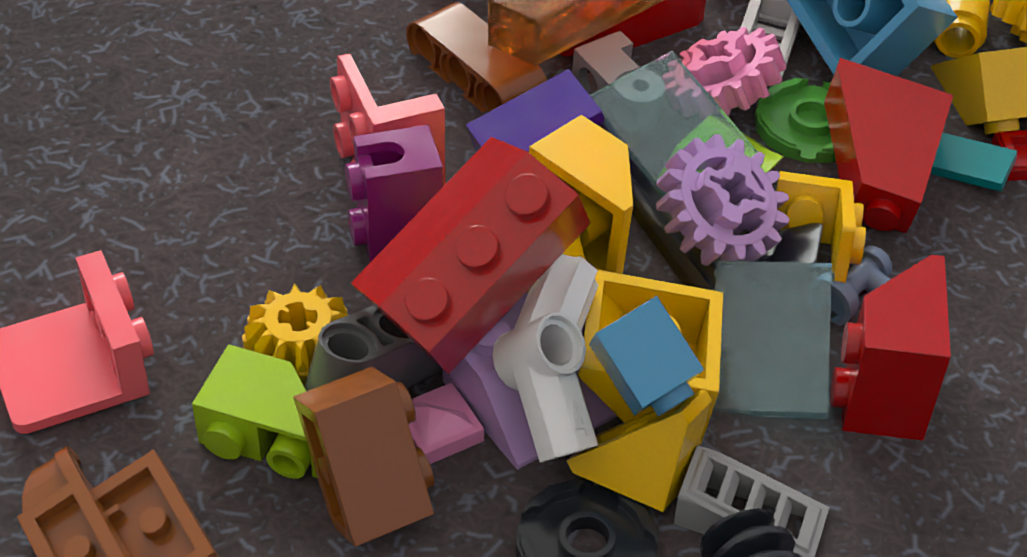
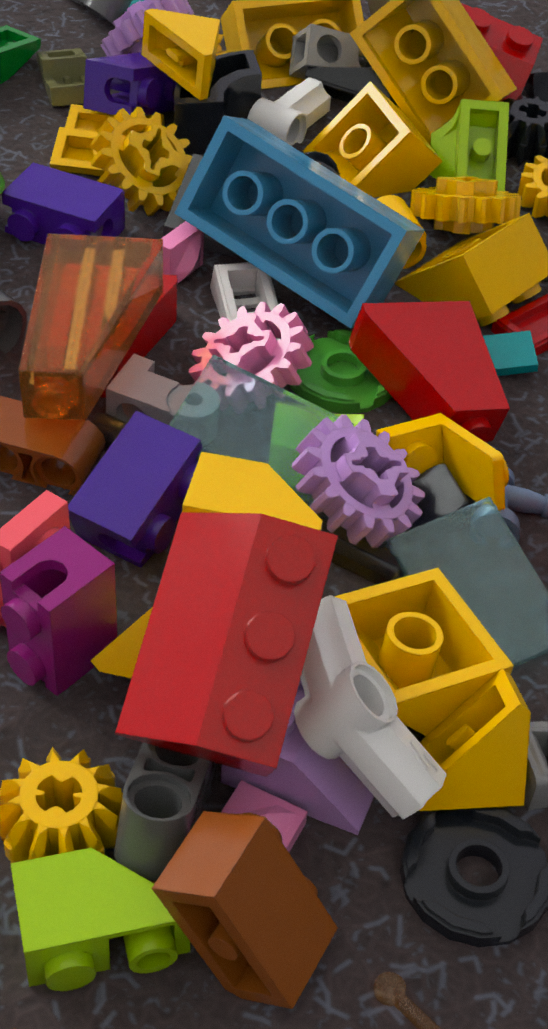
camera: 35 degrees left, 0 degrees up
(647, 358) = (458, 666): dark azure brick -> none

